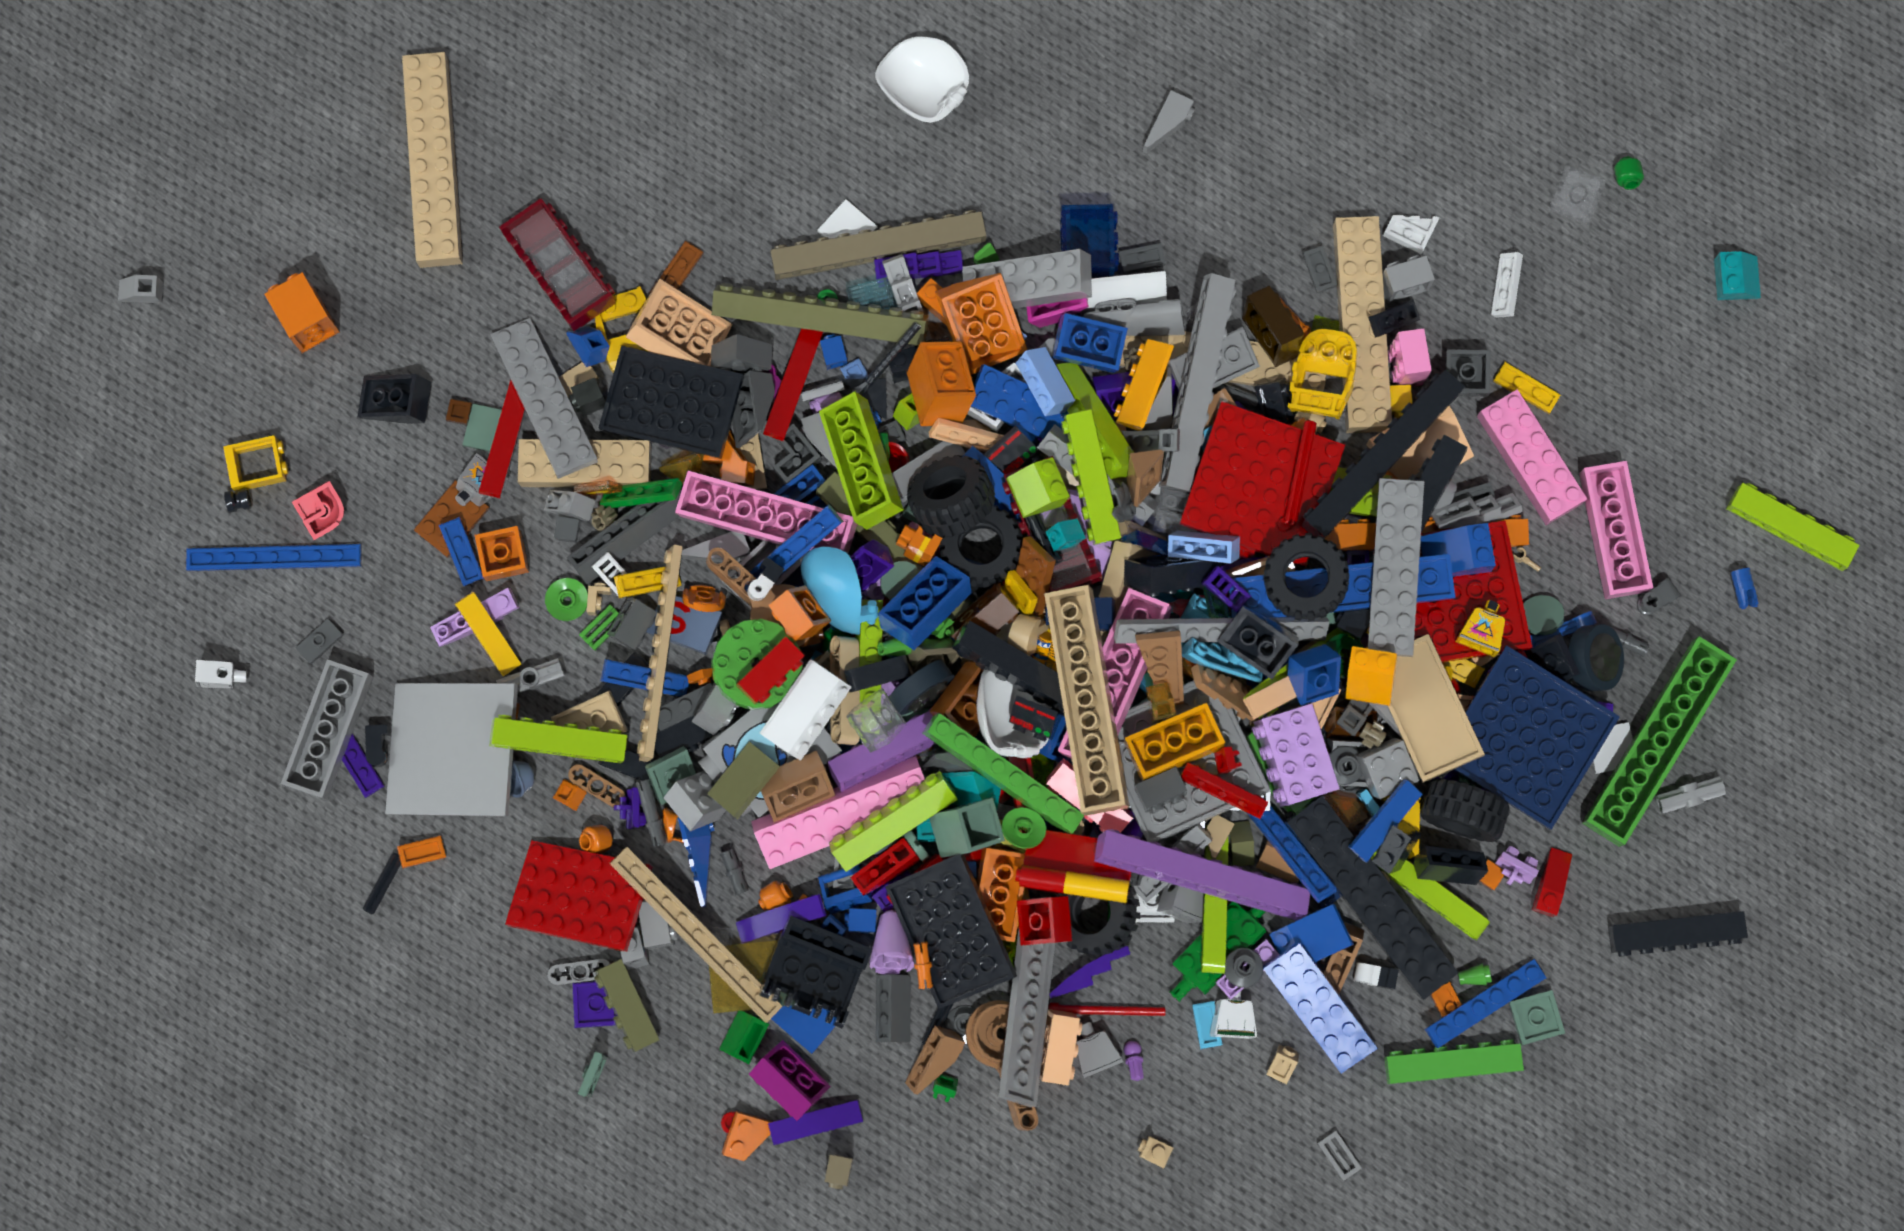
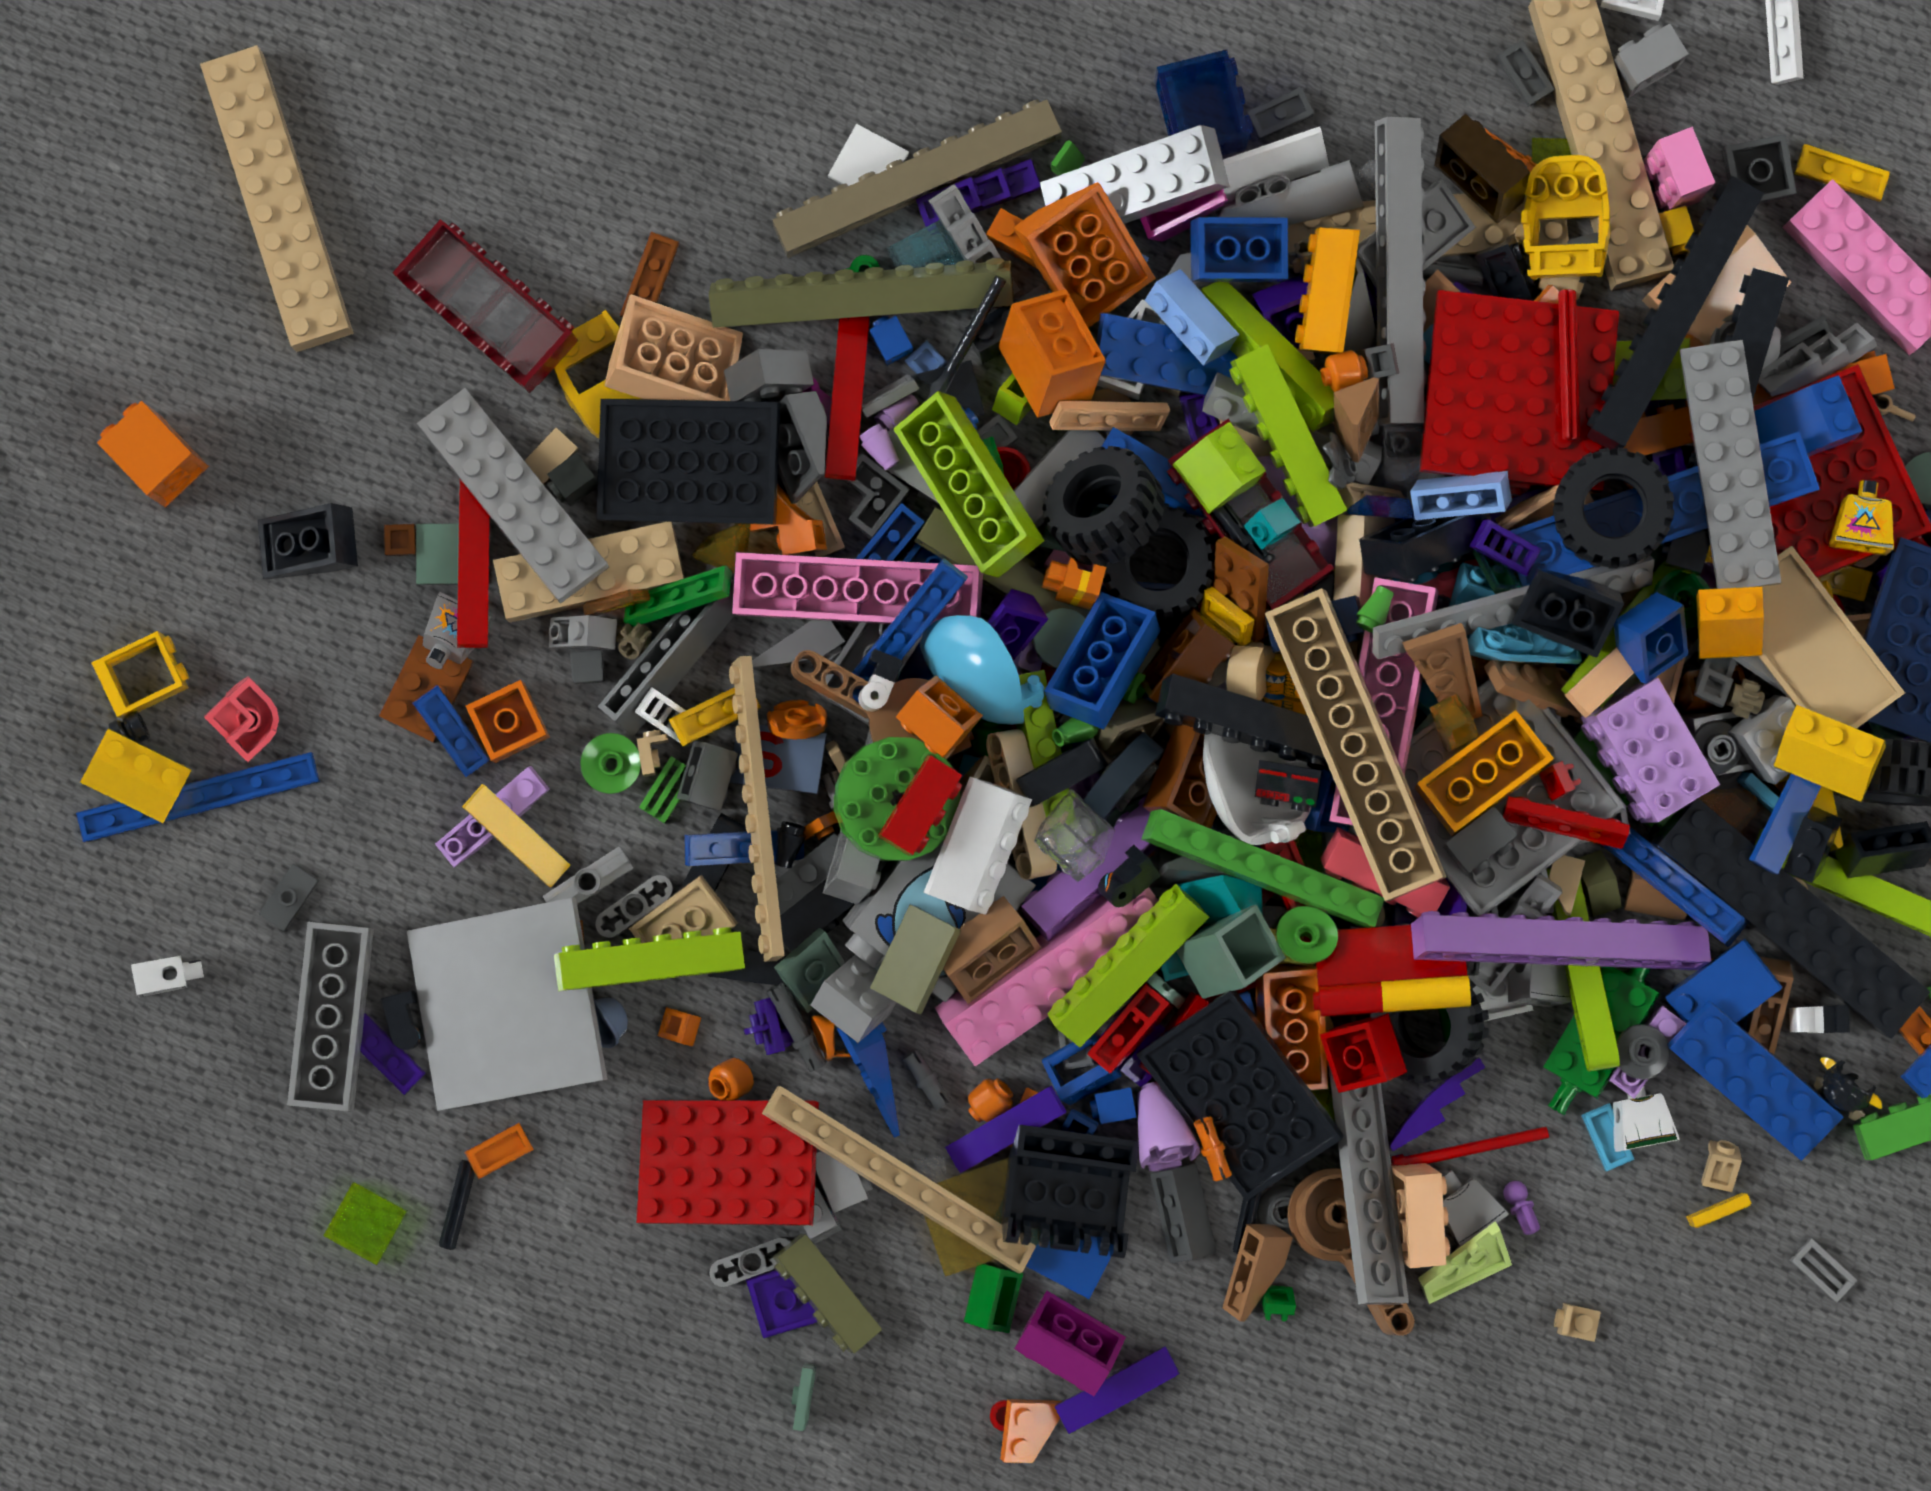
camera: 10 degrees left, 5 degrees up
(233, 531) = (135, 775): none -> yellow slope
(315, 881) = (365, 1223): none -> clear neon green plate
(541, 703) = (611, 913): none -> light grey beam
(586, 772) = (694, 992): medium nougat beam -> none
(589, 345) = (555, 406): blue slope -> none
(676, 683) = (788, 843): none -> black cone
(806, 421) = (879, 446): none -> lavender cone
(838, 1171) = (1164, 1448): dark tan brick -> none
(907, 760) = (1128, 879): none -> black leg
(1015, 451) = (1174, 423): black slope -> none
(1086, 1091) = (1470, 1263): none -> yellowish green wing
(1123, 609) = (1375, 609): none -> bright green cone
(1141, 440) = (1343, 370): none -> orange head
(1273, 1095) = (1719, 1210): none -> yellow tile
(1381, 1030) = (1843, 1091): none -> black hair
(1394, 318) = (1643, 119): black tile -> none
(1420, 783) = (1829, 753): none -> yellow slope

